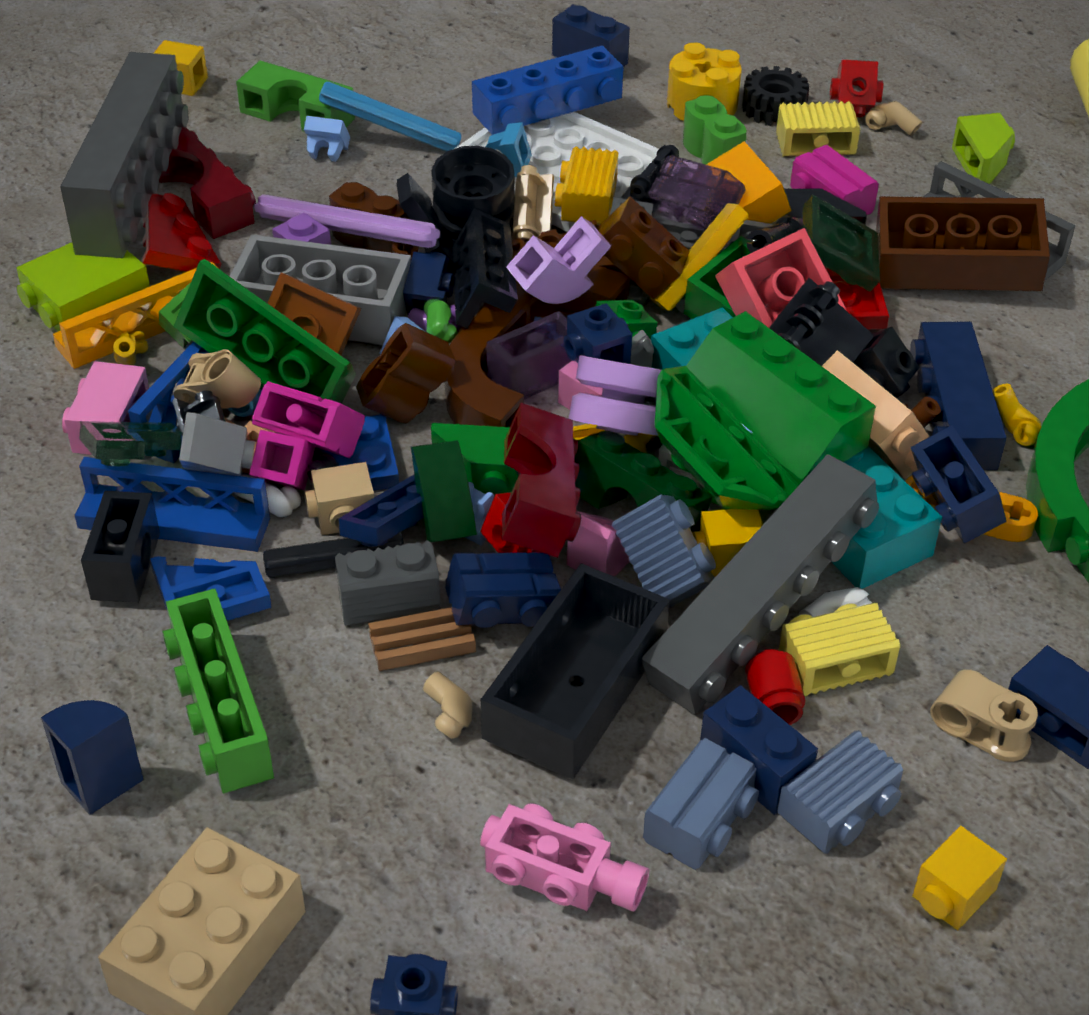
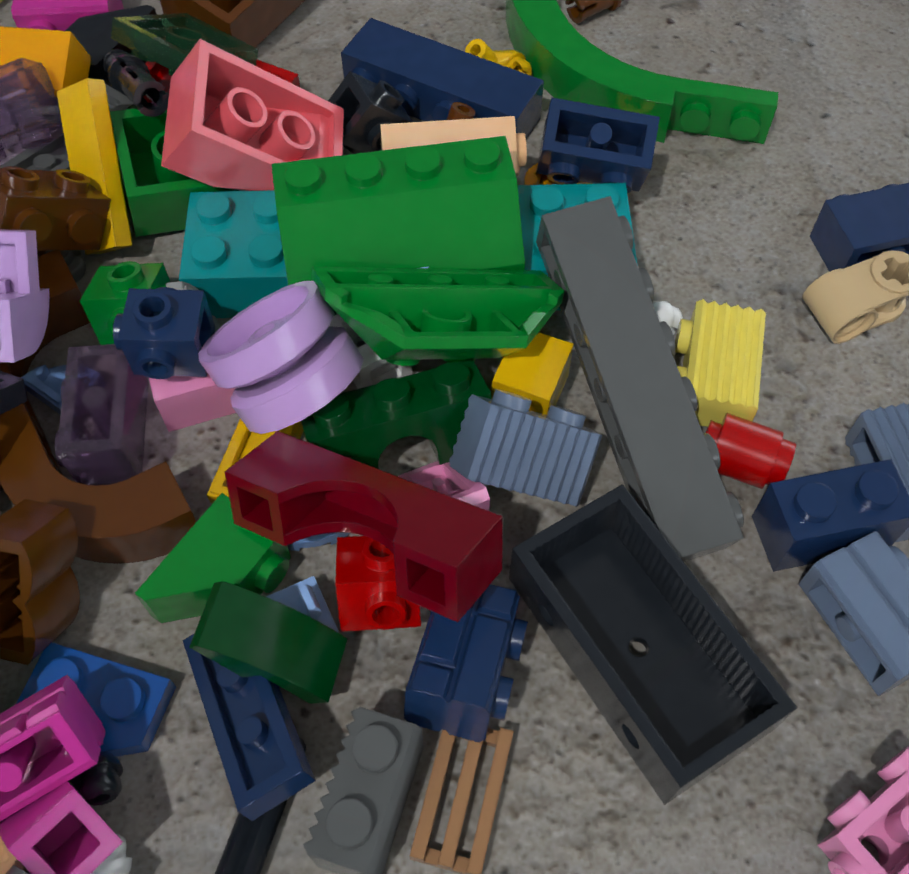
camera: 60 degrees left, 15 degrees up
(337, 493) = (168, 780): tan brick -> none
(454, 703) = (601, 809): tan arm -> none
(820, 325) = (313, 120): black hinge -> none

